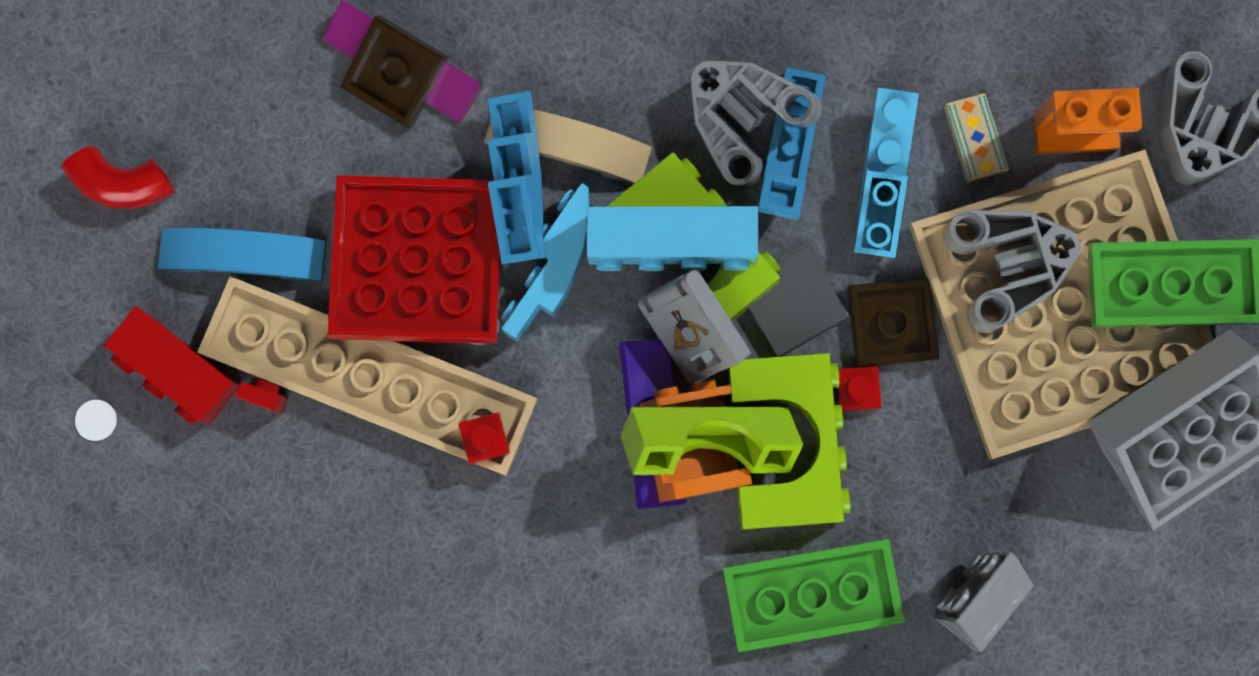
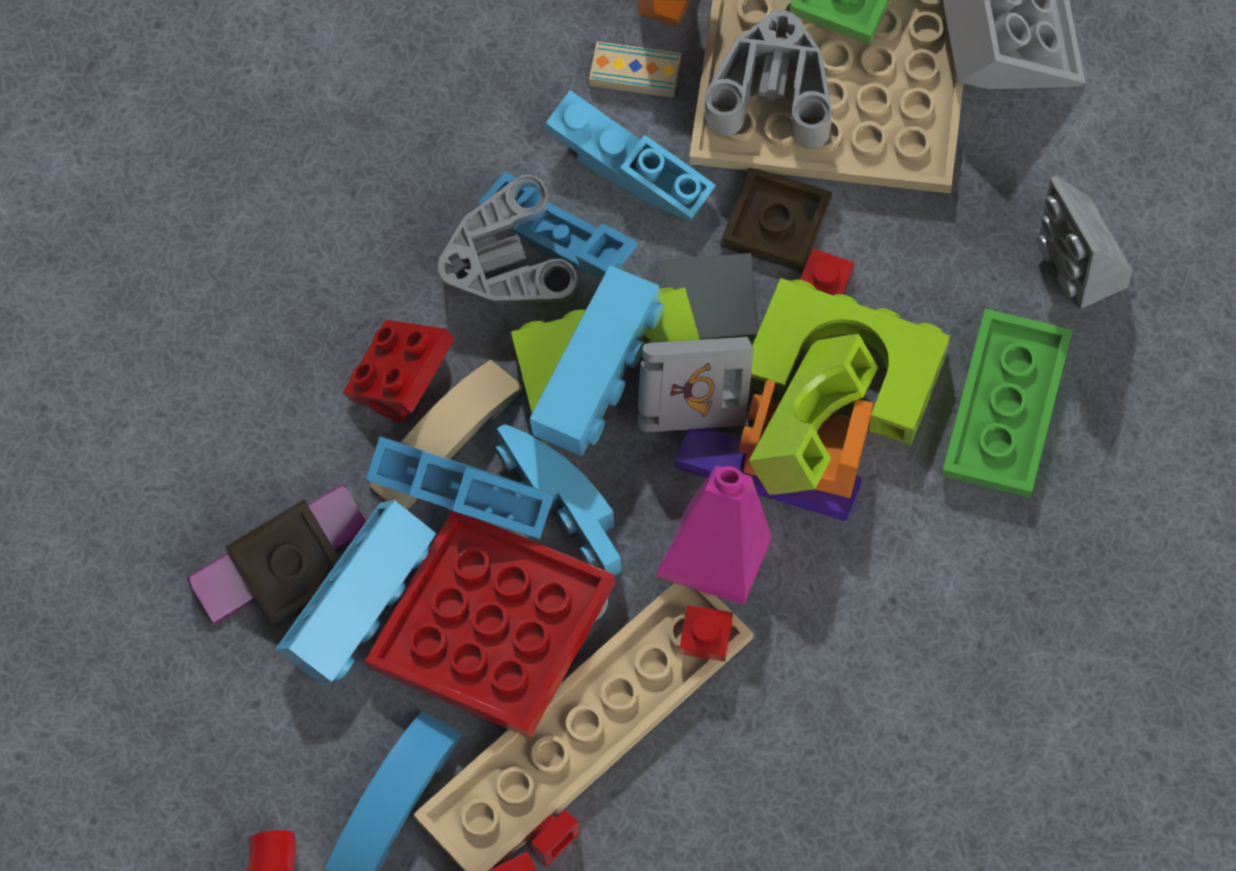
camera: 60 degrees left, 15 degrees down
(391, 140) = (356, 593): none -> medium azure brick
(564, 412) = (719, 538): none -> dark pink slope
(602, 75) = (398, 368): none -> red plate

